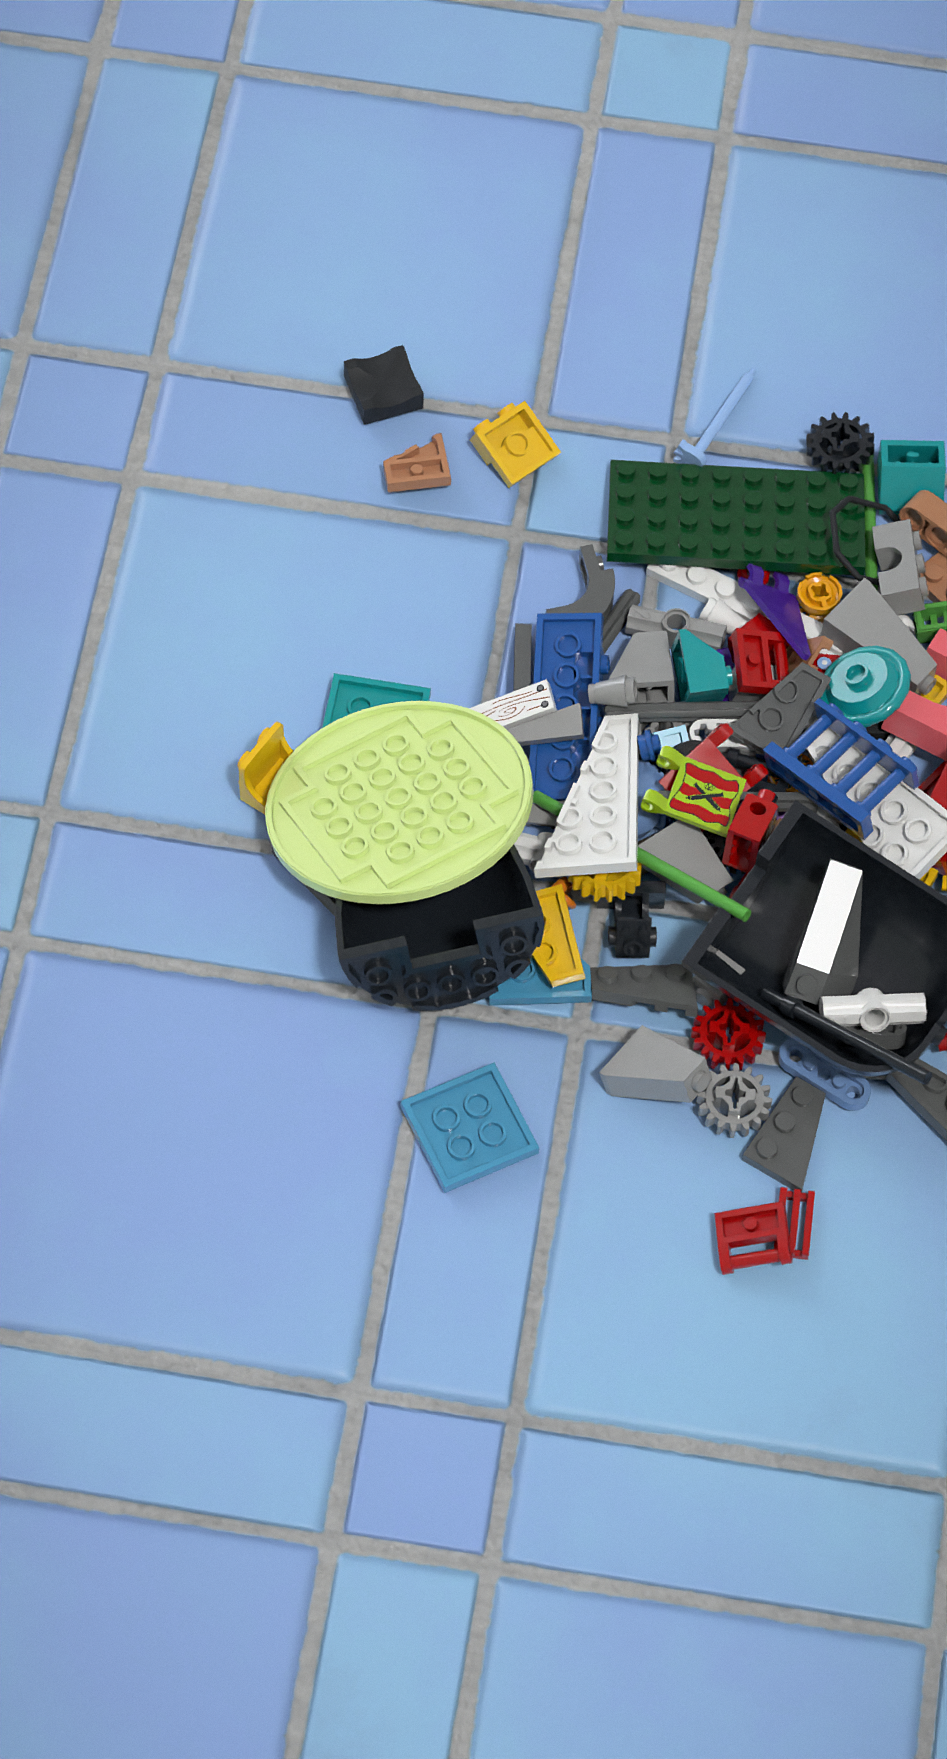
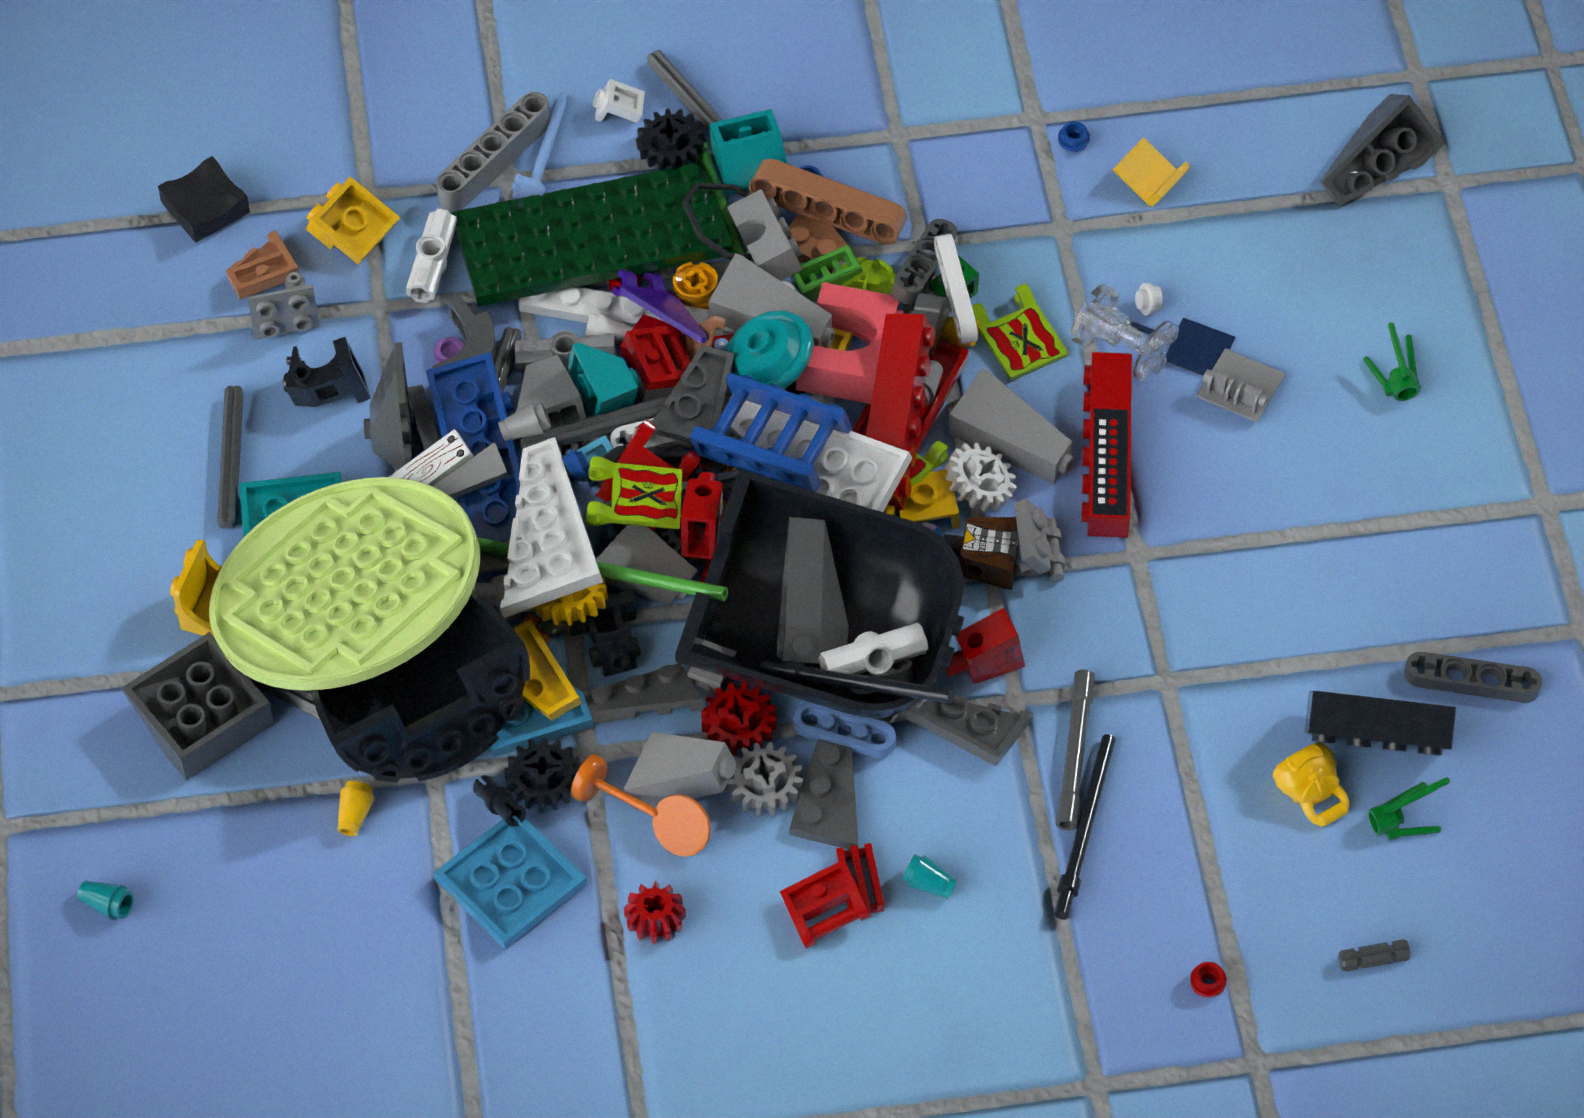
camera: 15 degrees left, 5 degrees down
(98, 1038) = (107, 898): none -> teal cone
(233, 879) = (198, 706): none -> dark grey slope
(334, 644) = (230, 457): none -> dark grey axle
(347, 1016) = (354, 806): none -> yellow cone
(425, 517) = (284, 310): none -> light grey hinge
(448, 598) = (326, 383): none -> black tile
(481, 1050) = (499, 800): none -> black pin
(493, 648) = (390, 414): none -> dark grey wedge
(527, 1021) = (541, 774): none -> black gear
(566, 594) = (447, 348): none -> medium lavender tile
(572, 511) = (431, 256): none -> white piece
(592, 1188) = (654, 912): none -> red gear
(639, 1116) = (677, 820): none -> orange piece
(652, 420) = (493, 152): none -> light grey beam
(803, 391) = (619, 100): none -> white bracket
(858, 1240) = (928, 877): none -> teal cone
(868, 396) = (683, 89): none -> dark grey axle

